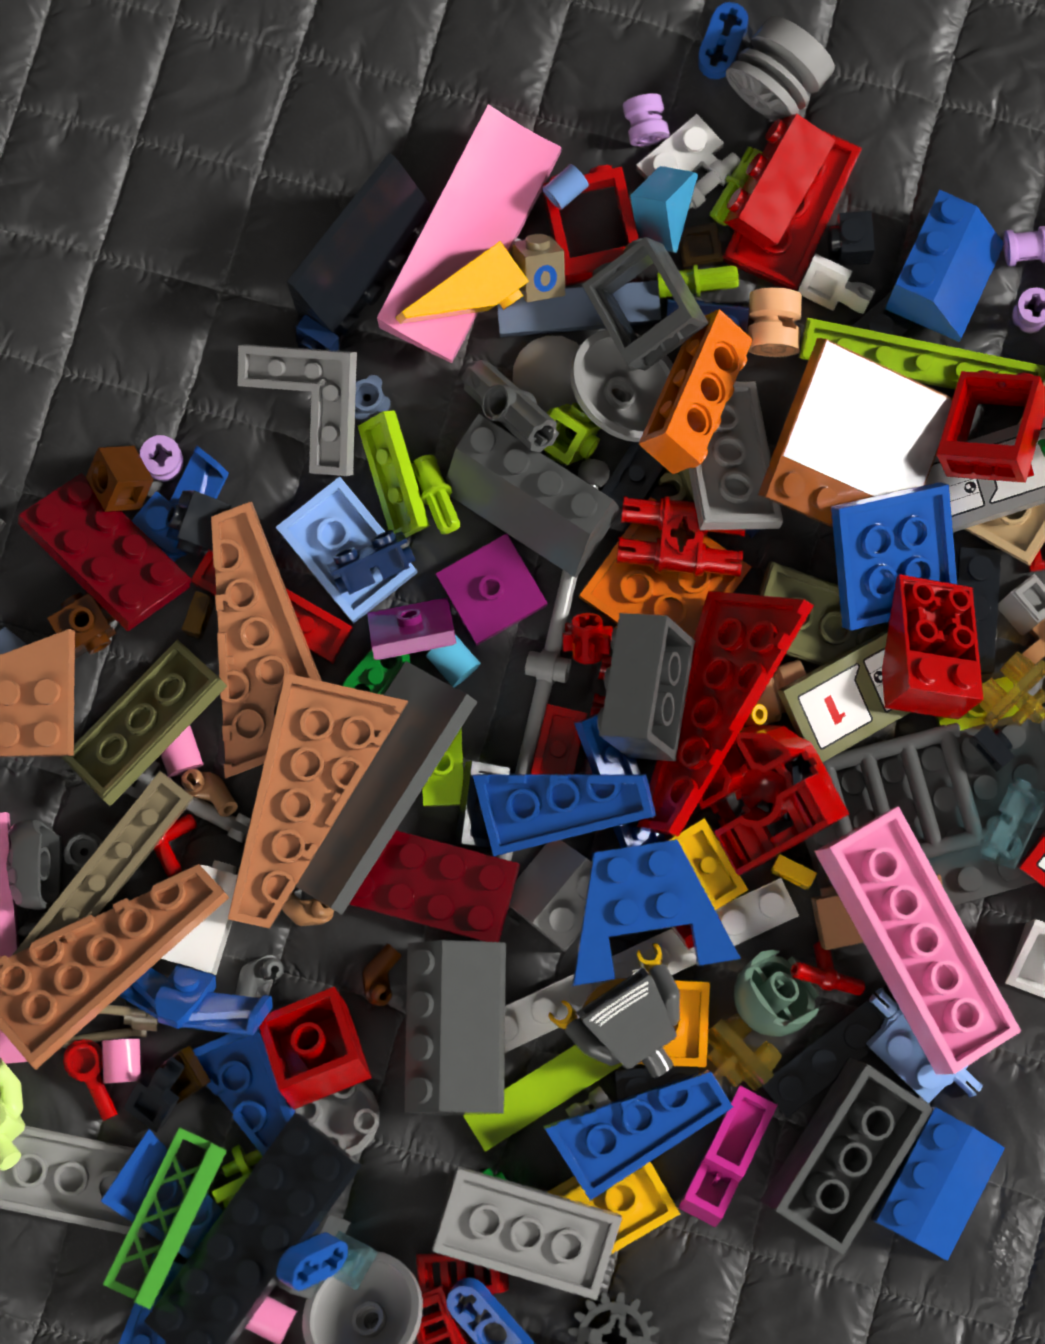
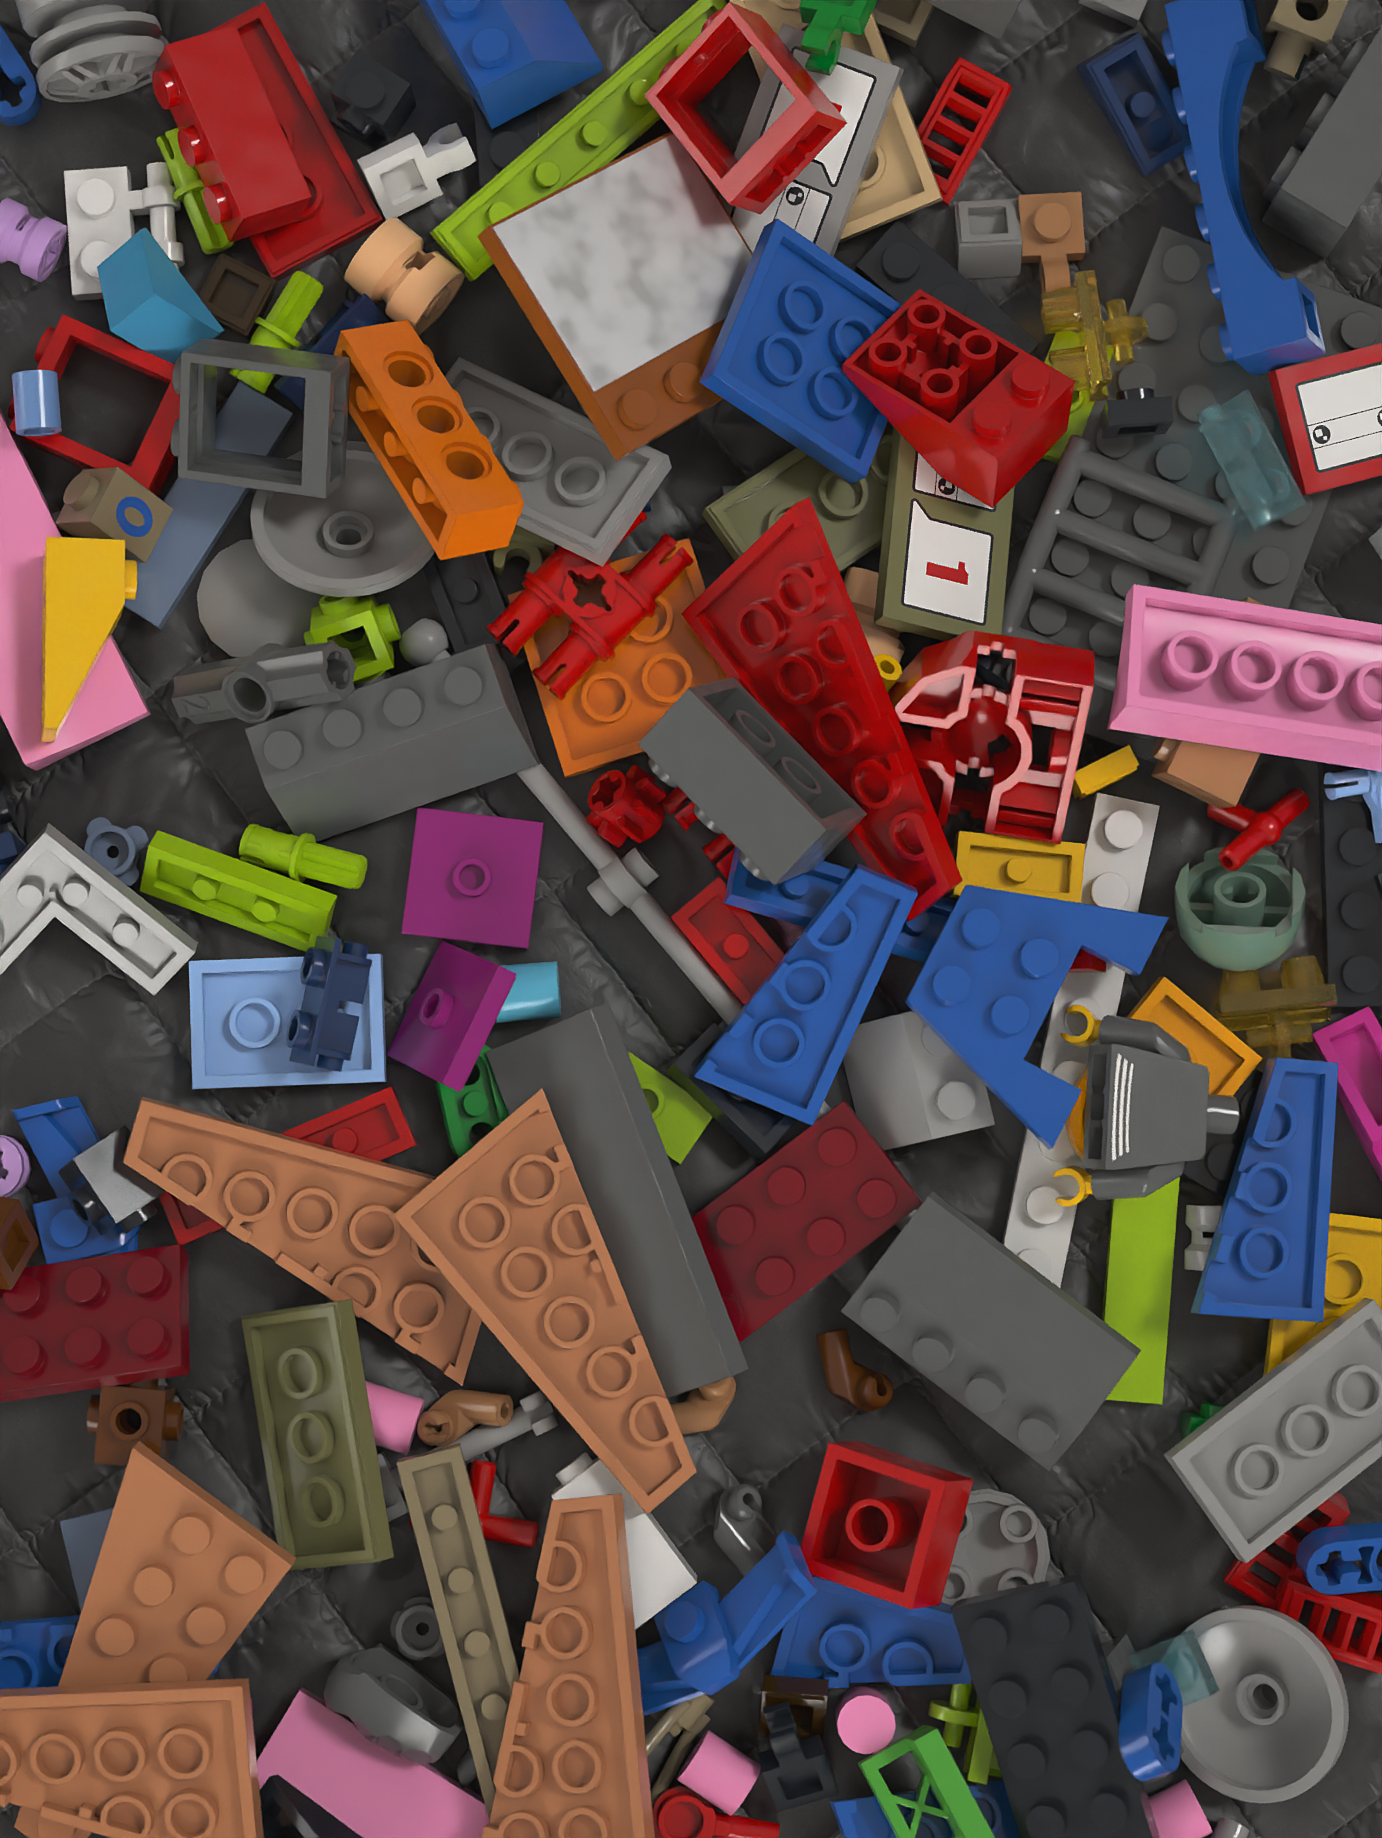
camera: 55 degrees left, 5 degrees up
(198, 615) = (232, 1268): dark brown tile -> none
(204, 1116) = (865, 1719): none -> bright pink piece

